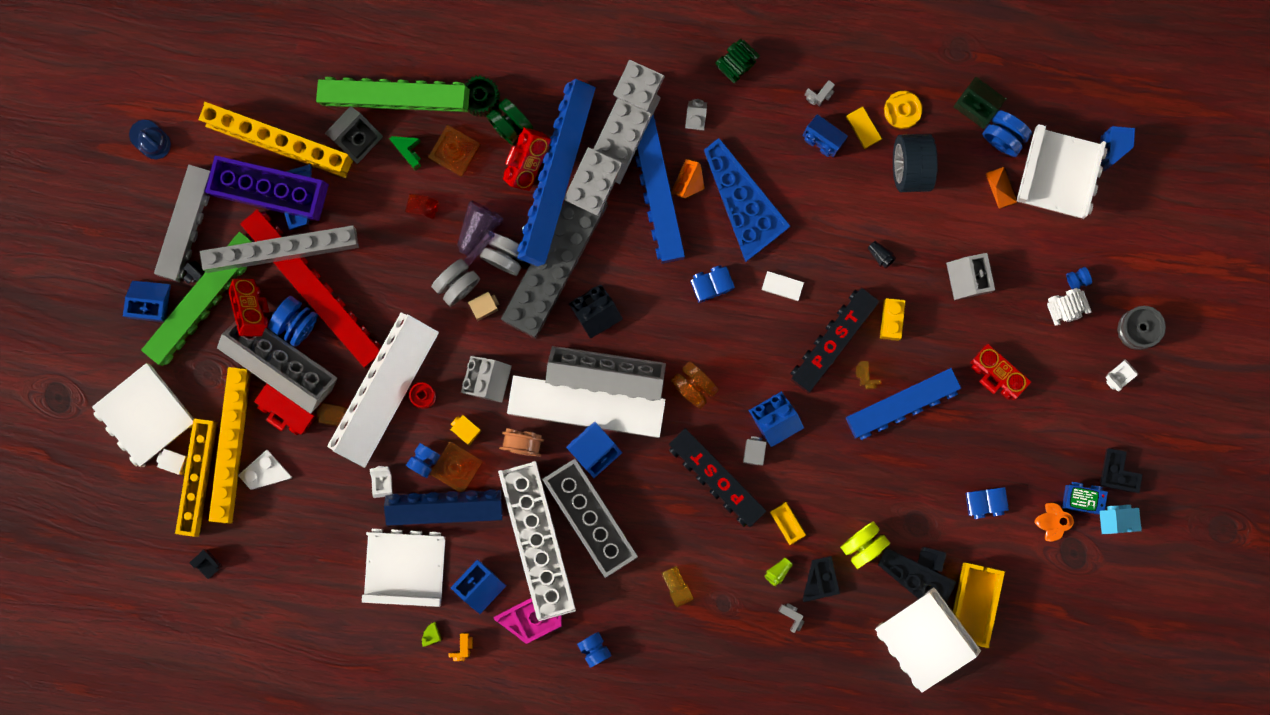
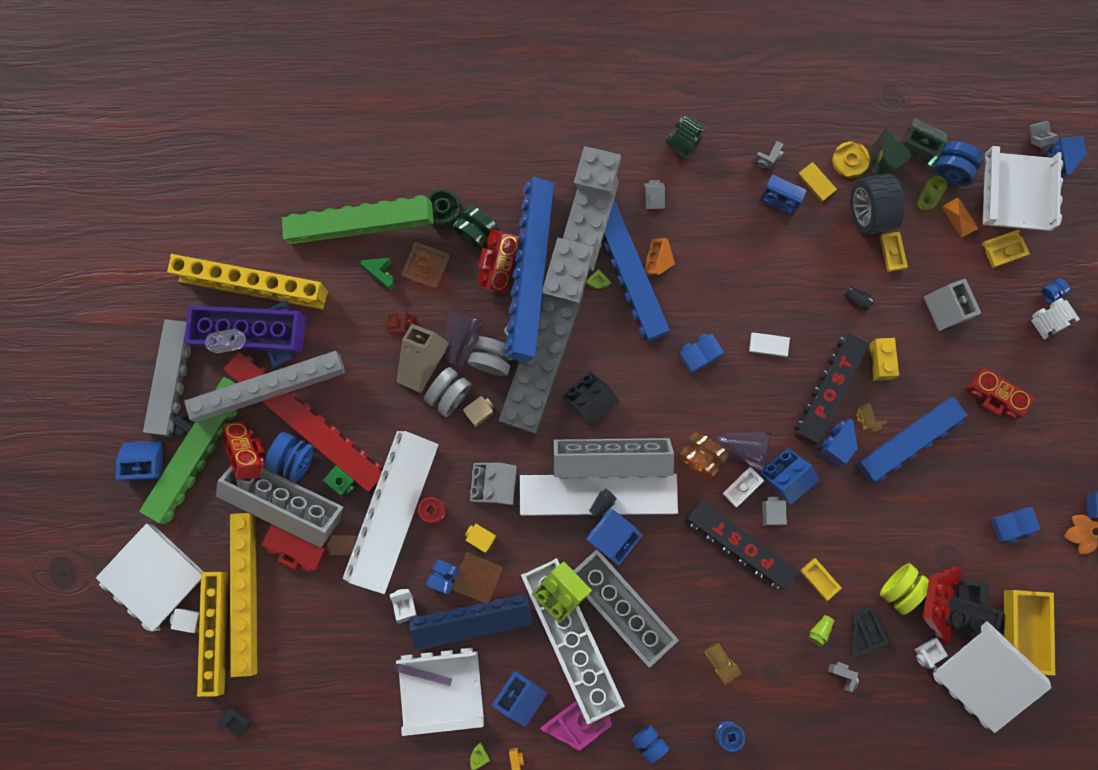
camera: 10 degrees left, 5 degrees down
(150, 139) = (125, 302): dark blue piece -> none
(245, 197) = (224, 342): none -> clear plate
(264, 471) = (282, 615): white wing -> none
(338, 353) = (340, 481): none -> green brick
(354, 134) = (325, 265): dark grey slope -> none
(389, 549) = (422, 674): none -> clear purple bar
(433, 243) = (419, 357): none -> dark tan slope
(521, 444) = (542, 543): nougat wheel -> none
(533, 493) = (561, 592): none -> lime slope
(588, 415) = (602, 503): none -> black cone
(624, 193) = (598, 280): none -> lime tile
(670, 654) = (729, 736): none -> blue wheel
(729, 422) = (742, 487): none -> white plate
(739, 384) = (746, 447): none -> clear purple cone
(749, 210) = (722, 276): blue wing -> none
(830, 397) = (840, 445): none -> blue slope
(878, 610) = (930, 653): none -> white bracket
(891, 559) = (937, 601): none -> red wing
(925, 212) = (893, 251): none -> yellow plate
(939, 115) = (888, 154): none -> clear green slope
(977, 159) = (931, 194): none -> clear neon green plate
(1039, 227) = (1005, 248): none -> yellow plate
(1101, 116) = (1042, 136): none -> light grey bracket

